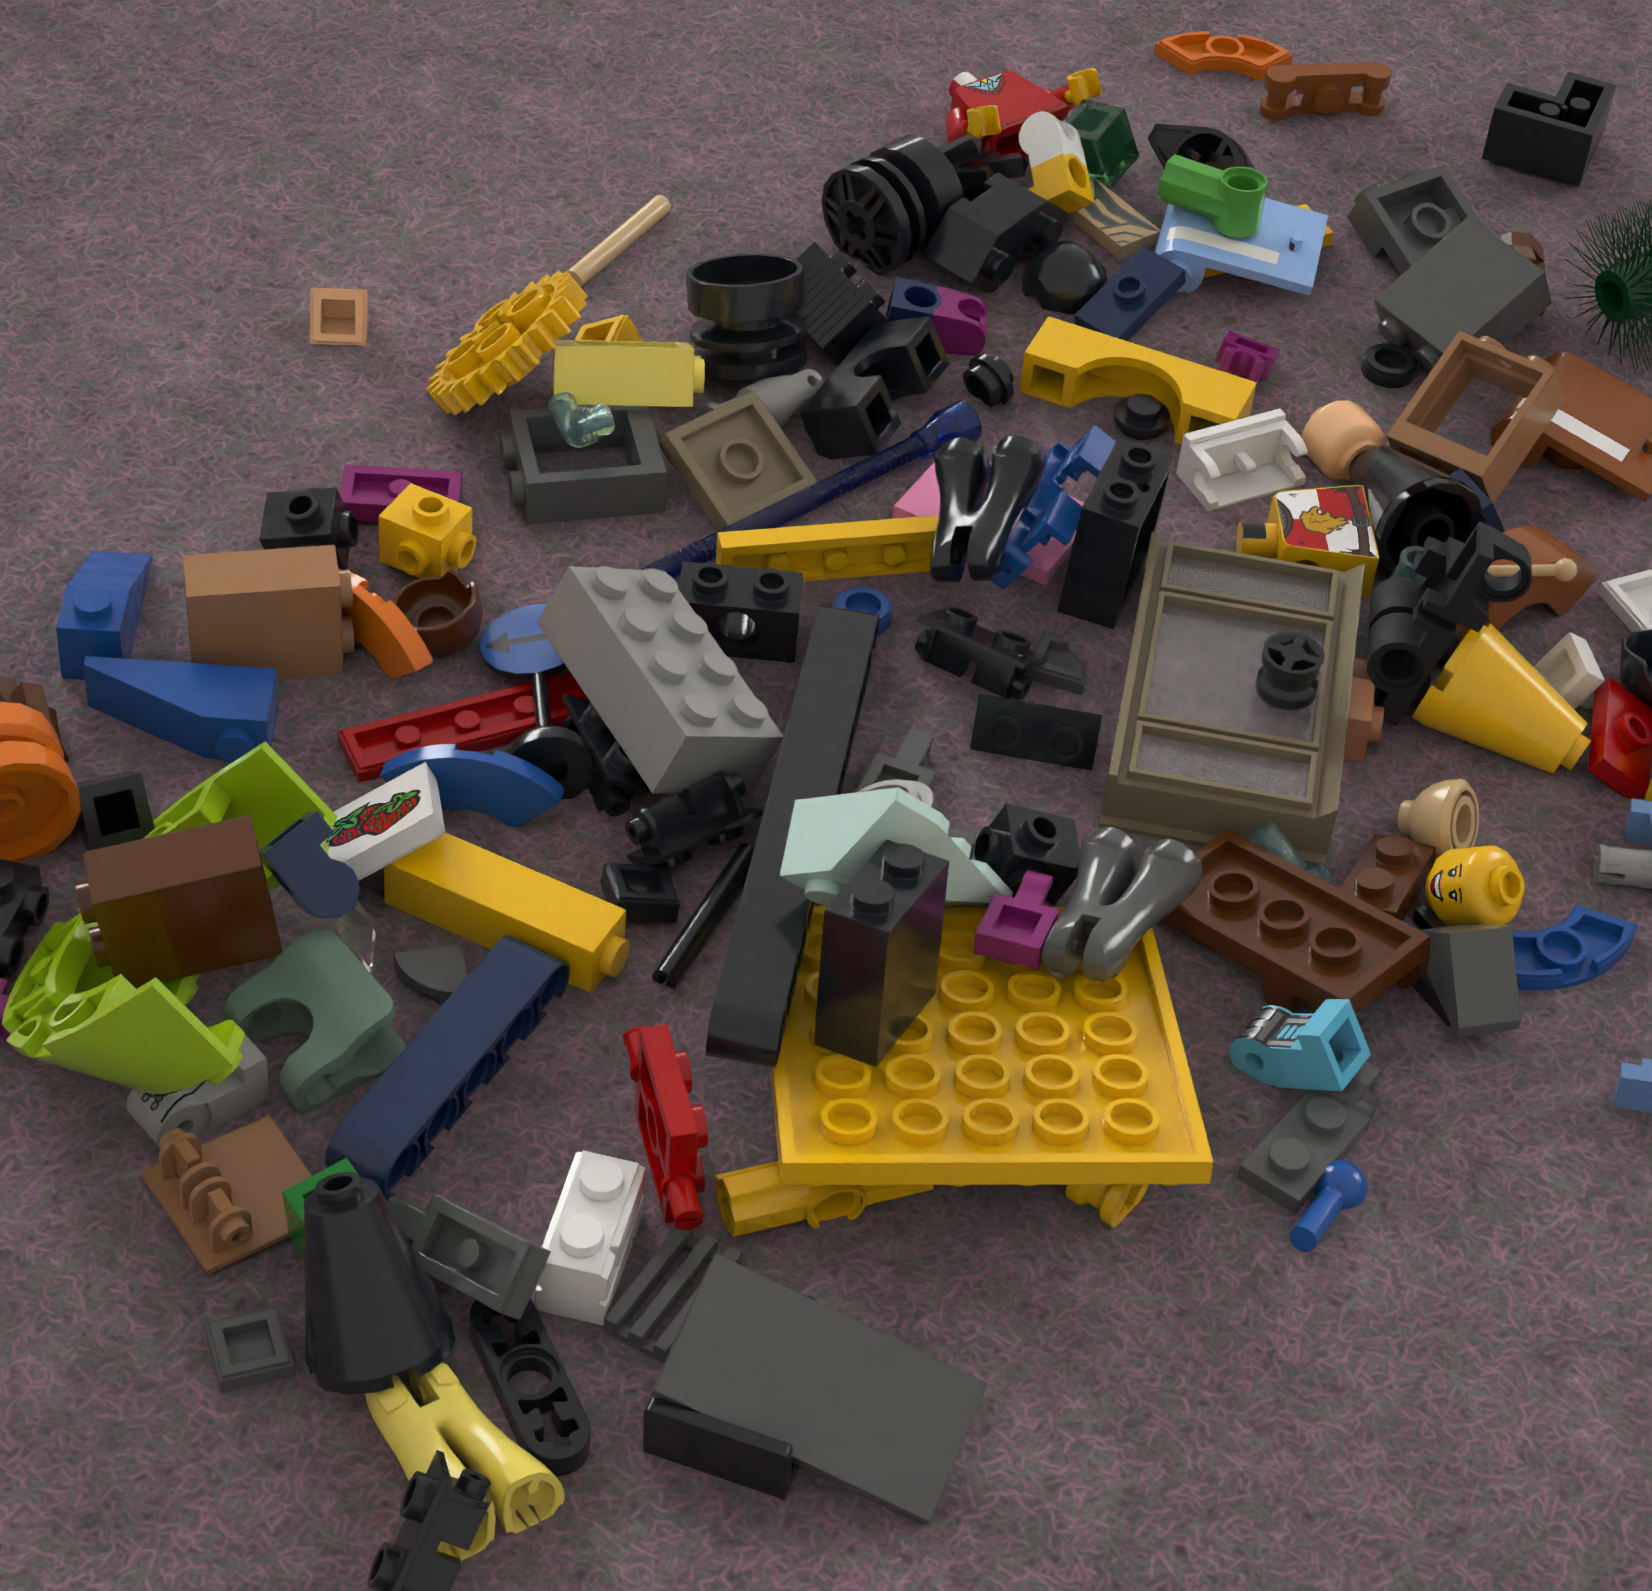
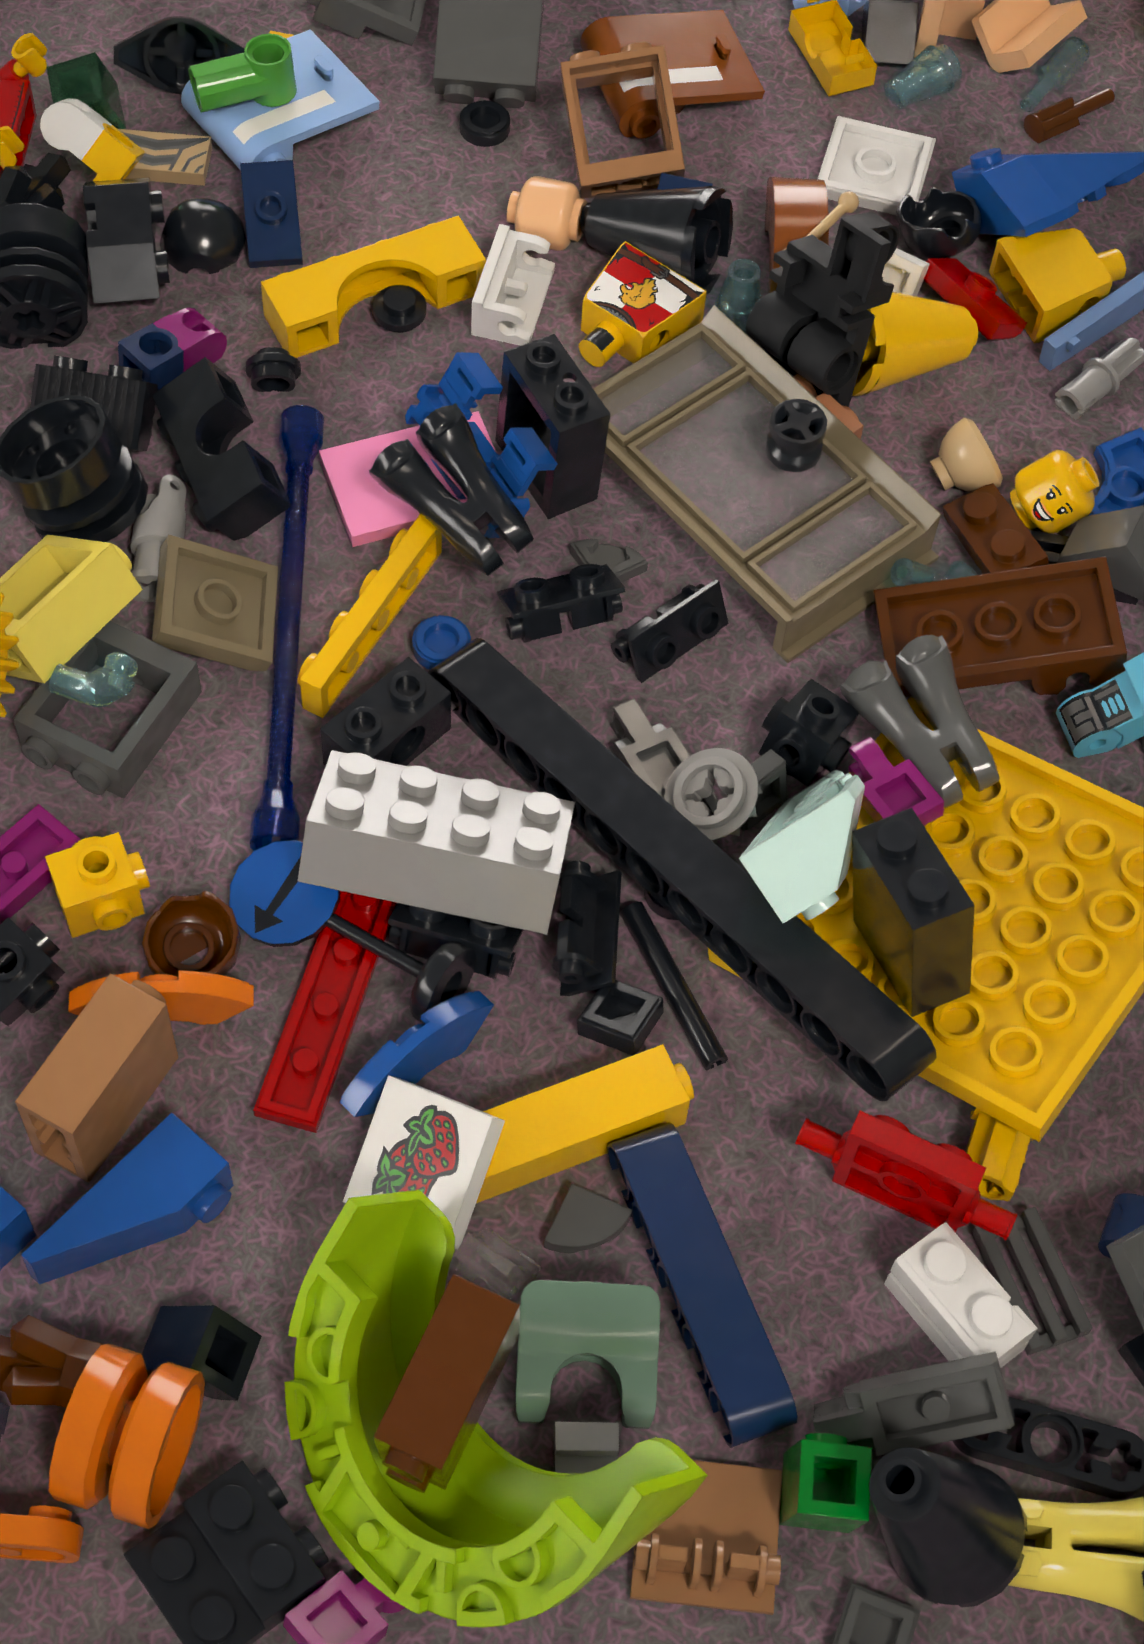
camera: 50 degrees left, 15 degrees up
(306, 871) = (479, 1251): dark blue leg -> none
(1246, 357) = (408, 198): magenta plate -> none

